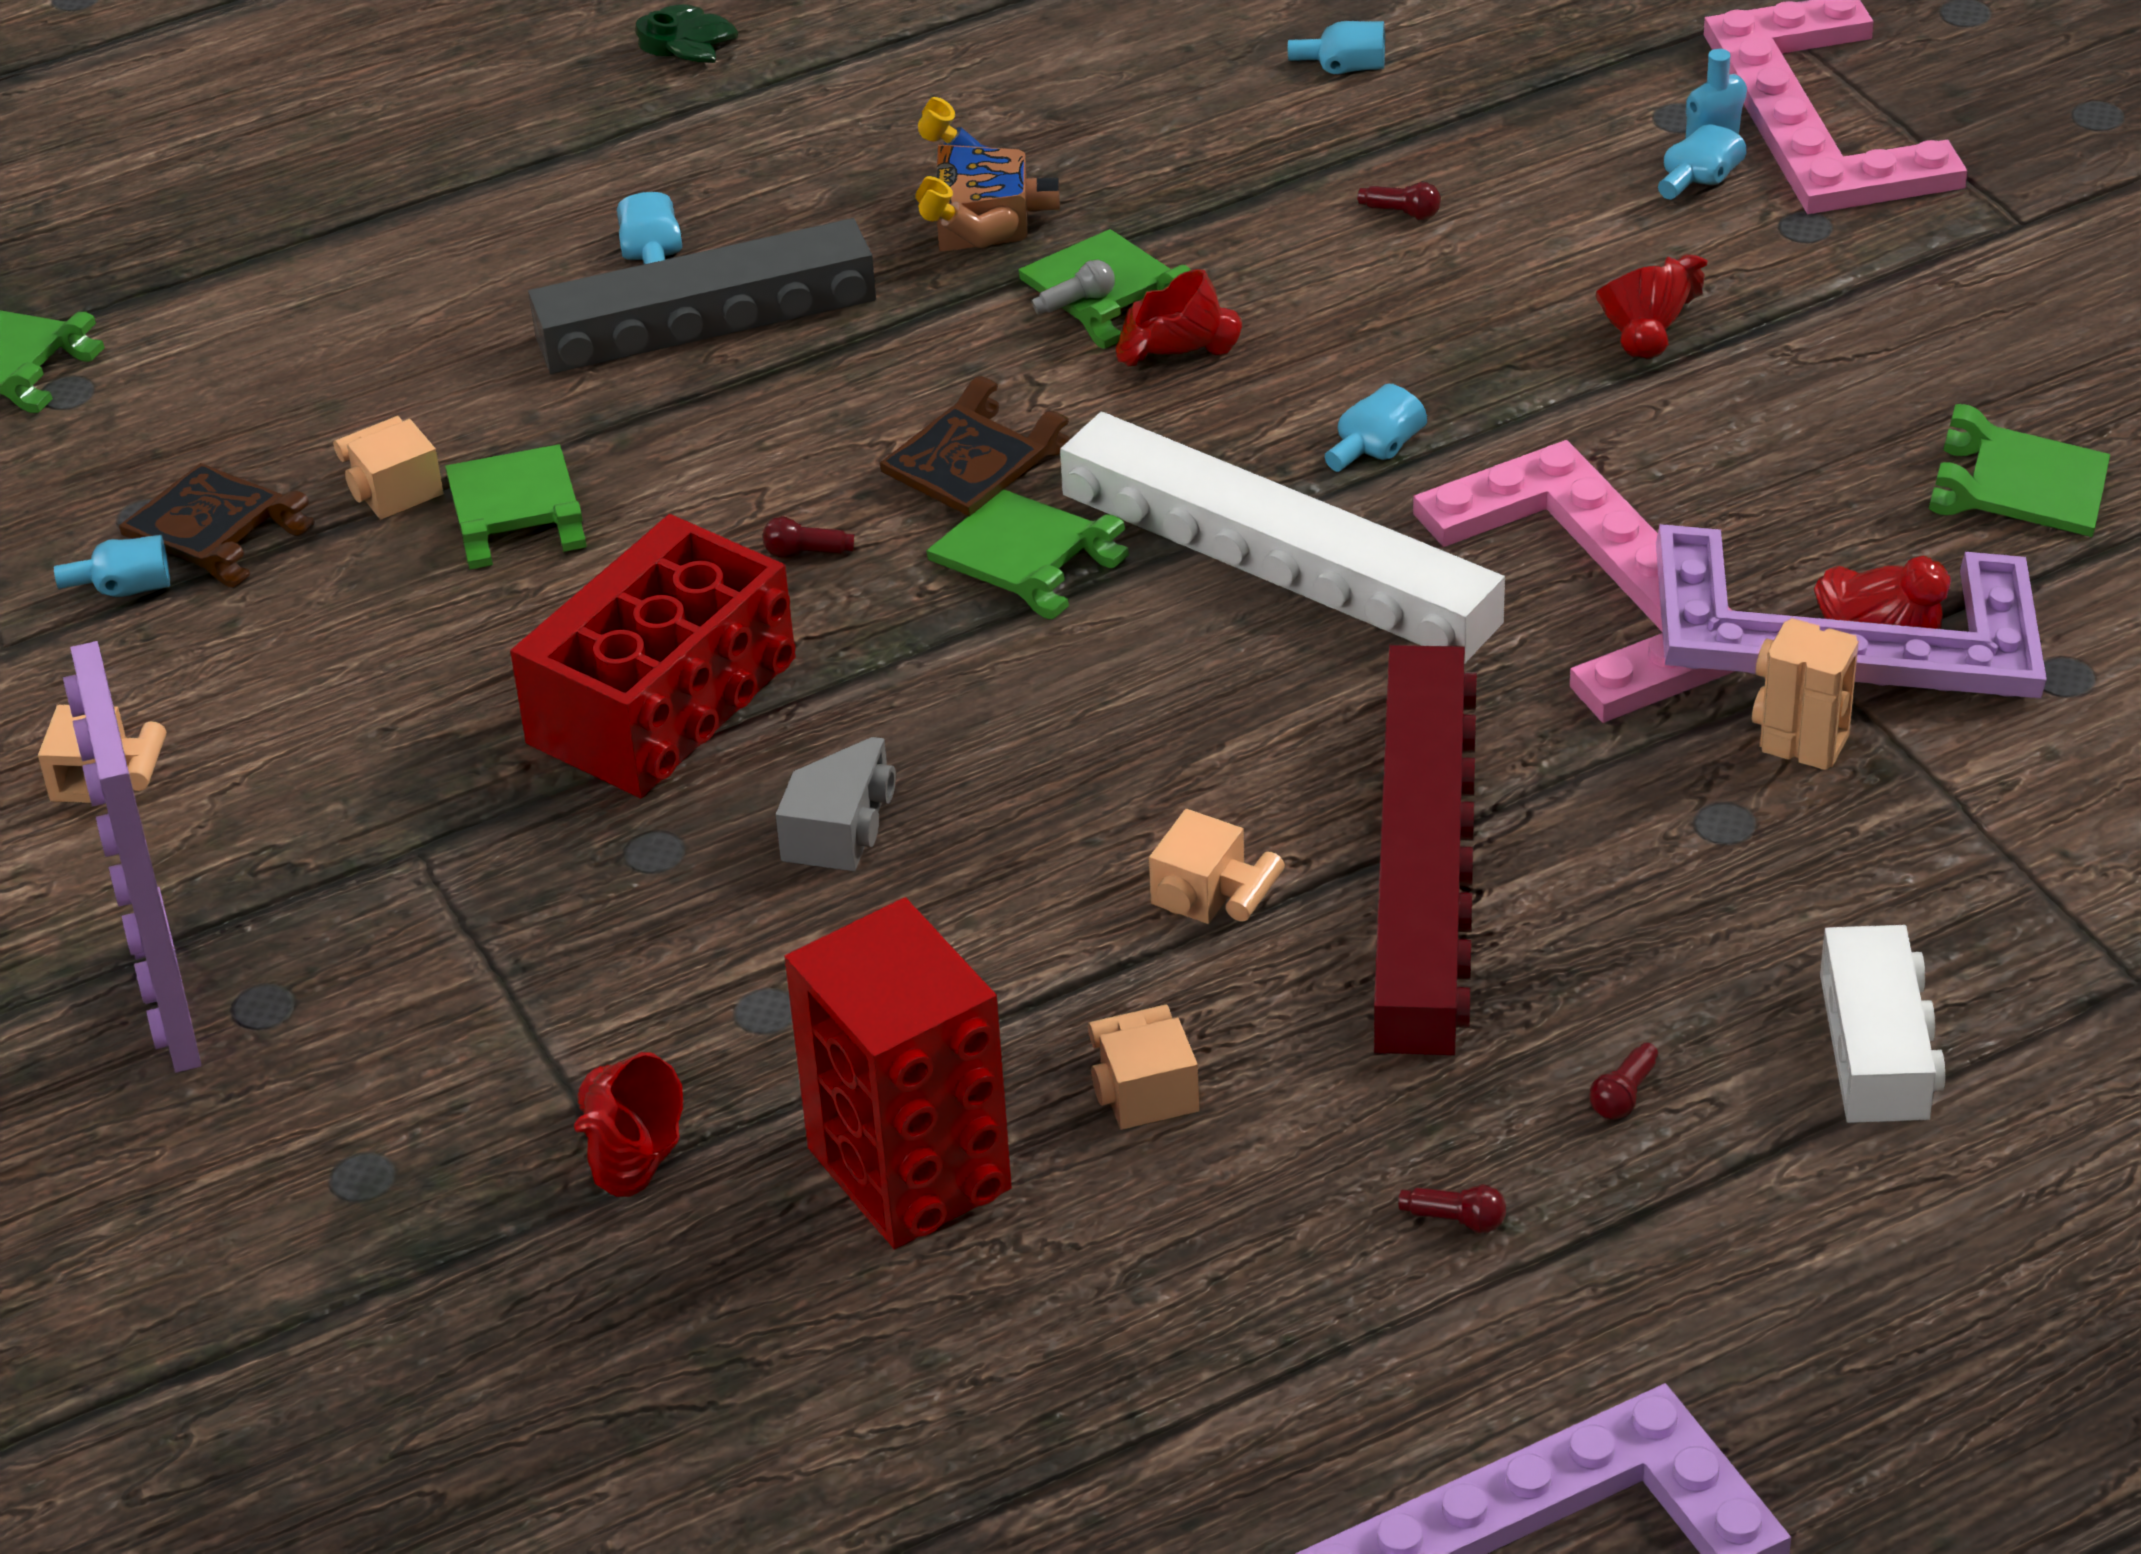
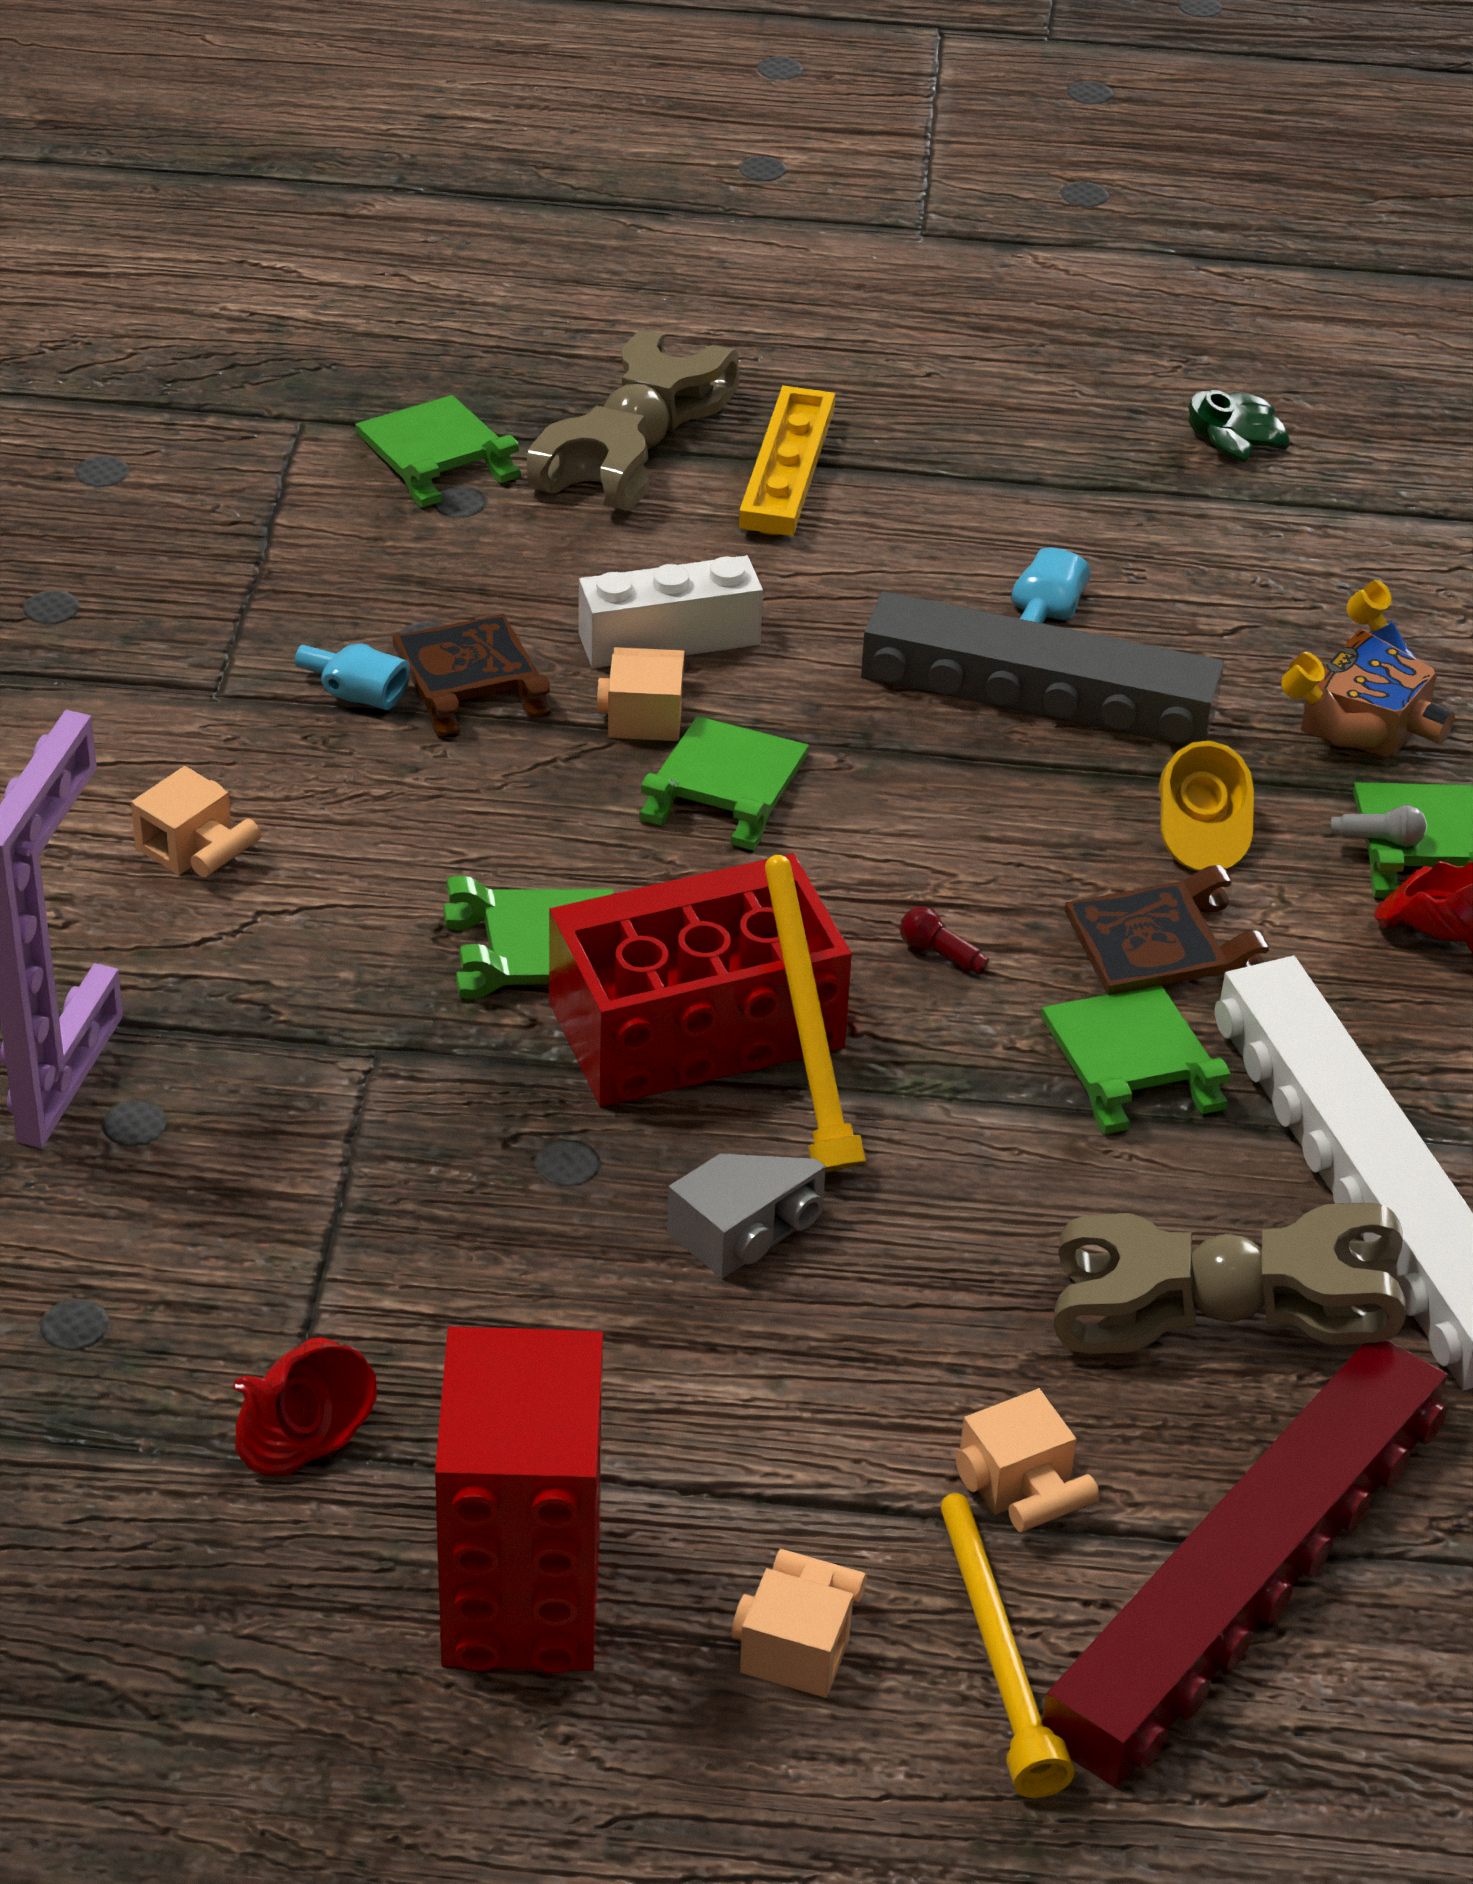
camera: 30 degrees right, 0 degrees up
(173, 267) = (615, 439): none -> dark tan piece
(336, 228) = (787, 461): none -> yellow plate
(352, 389) = (671, 608): none -> white brick
(466, 692) = (515, 932): none -> bright green flag
(861, 719) = (833, 1140): none -> yellow piece
(928, 337) = (1206, 806): none -> yellow cap
(1204, 691) = (1301, 1275): none -> dark tan piece
(1392, 1060) = (1036, 1756): none -> yellow piece

